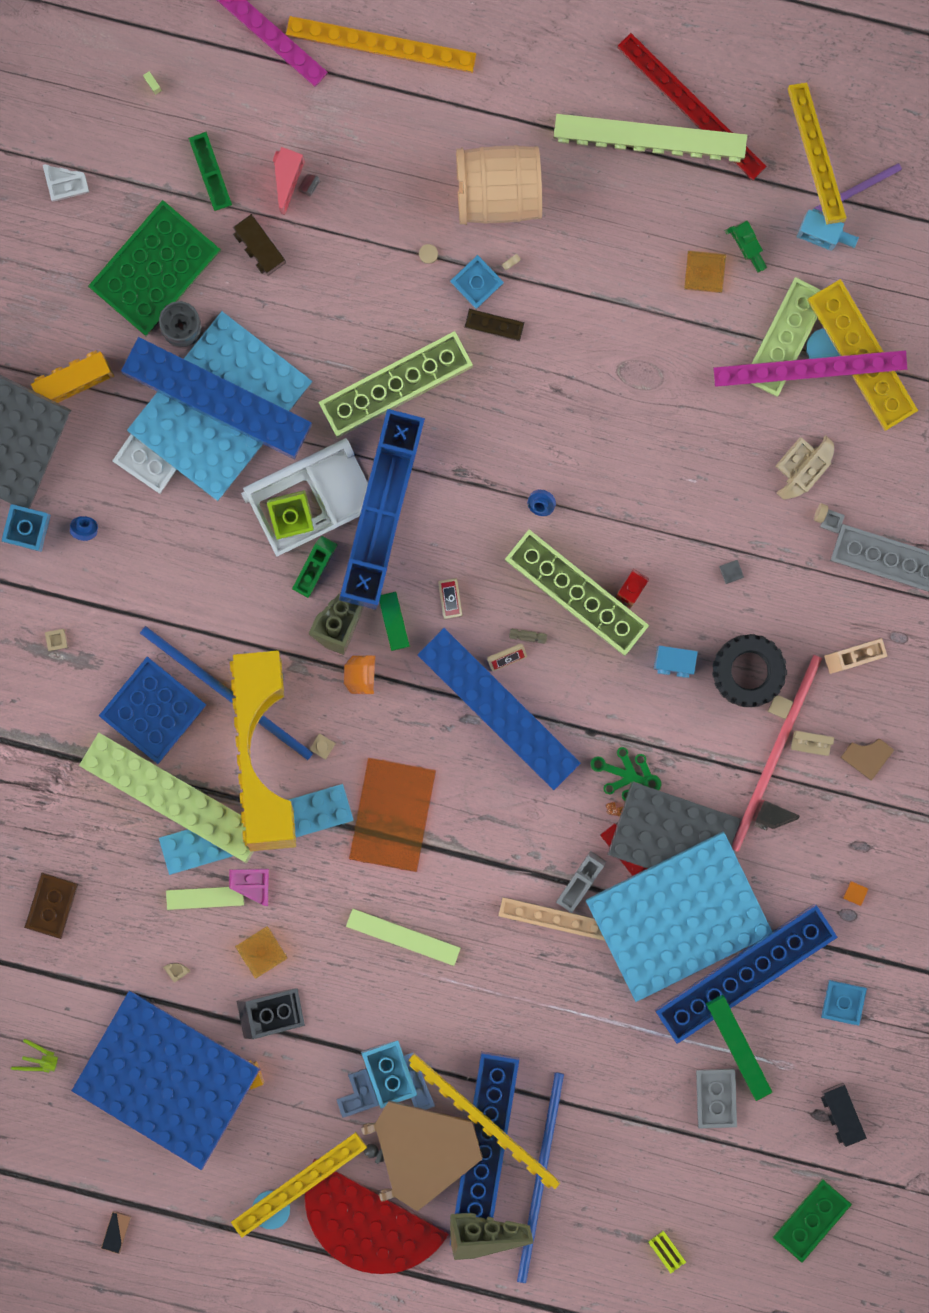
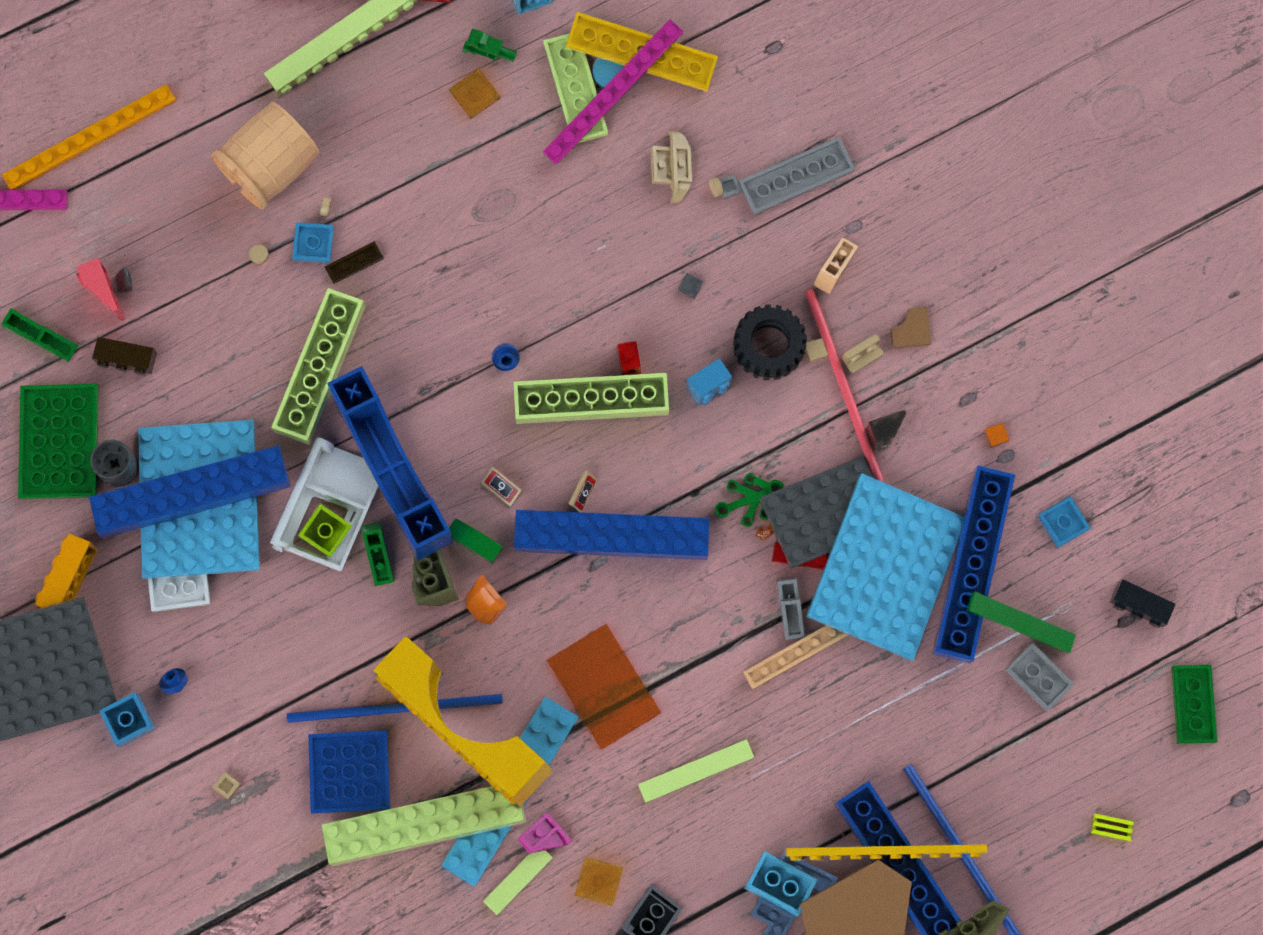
camera: 45 degrees left, 10 degrees down
(322, 746) = (504, 682): tan plate -> none
(528, 636) = (584, 463): dark tan axle -> none

